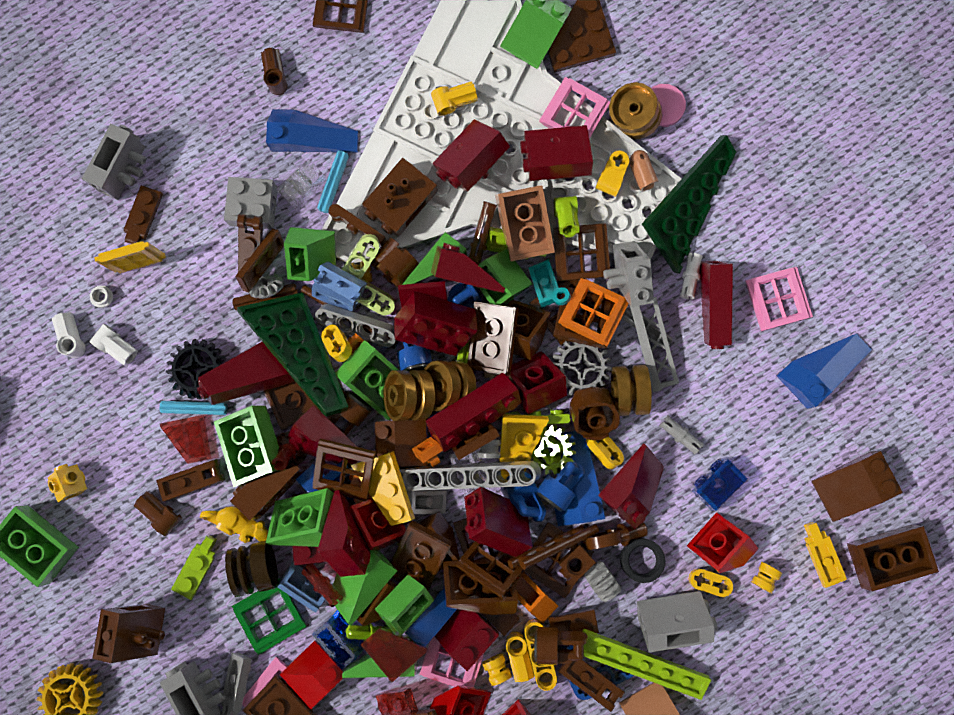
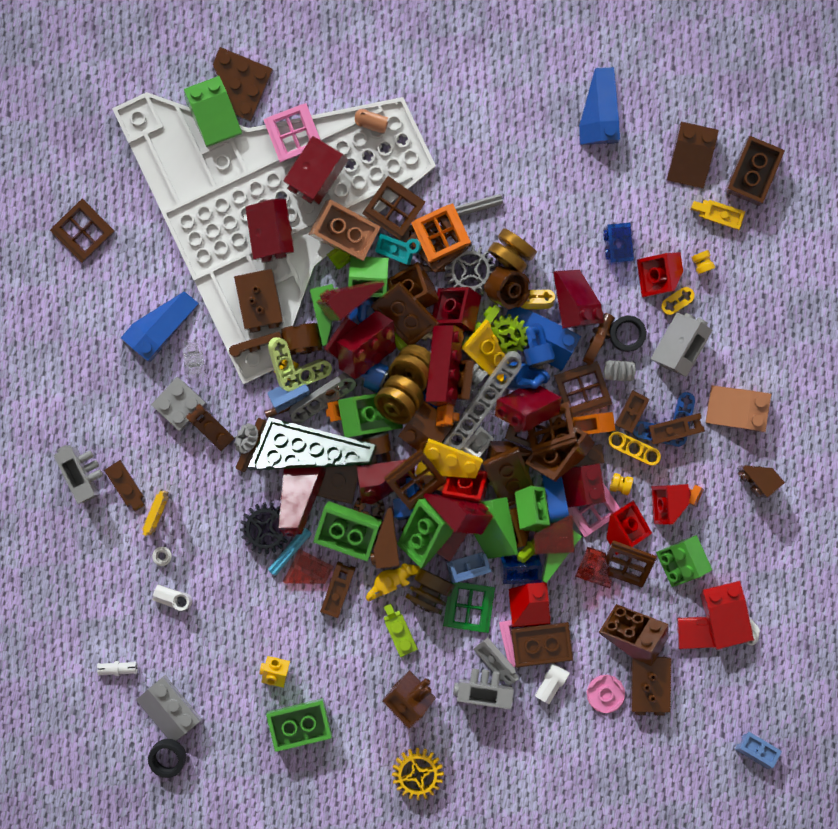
camera: 55 degrees left, 5 degrees up
(113, 344) = (200, 572): white piece -> none
(160, 515) = (346, 627): reddish brown piece -> none
(260, 260) = (226, 427): reddish brown tile -> none
(273, 71) = (93, 315): reddish brown piece -> none
(285, 453) = (372, 510): clear red pin -> none
(307, 251) = (249, 391): bright green slope -> none
(322, 585) = (477, 553): clear red pin -> none
(333, 181) = (207, 336): medium azure axle -> none
(333, 345) = (324, 424): yellow beam -> none
(341, 282) = (288, 384): medium blue hinge -> none
(448, 99) = (215, 212): yellow piece -> none
(487, 209) = (314, 246): reddish brown pin -> none
(519, 658) = (626, 464): yellow piece -> none
(548, 641) = (630, 437): reddish brown piece -> none
(552, 546) = (571, 384): reddish brown bar -> none
(567, 214) = (360, 196): lime piece -> none
(586, 563) = (598, 370): reddish brown brick -> none
(612, 176) = (360, 145): yellow piece -> none
(631, 274) = (436, 187): light grey piece -> none
(635, 110) = (330, 101): pearl gold wheel -> none
(645, 665) = (691, 387): lime plate -> none
(647, 351) = (491, 217): light grey fence -> none
(672, 103) = (335, 66): bright pink tile -> none
(681, 434) = (568, 241): light grey pin -> none
(688, 203) = (419, 110): dark green wing -> none
(691, 276) = (468, 146): white pin -> none
(717, 302) = (499, 145): dark red slope -> none
(798, 294) = (537, 84): bright pink piece -> none

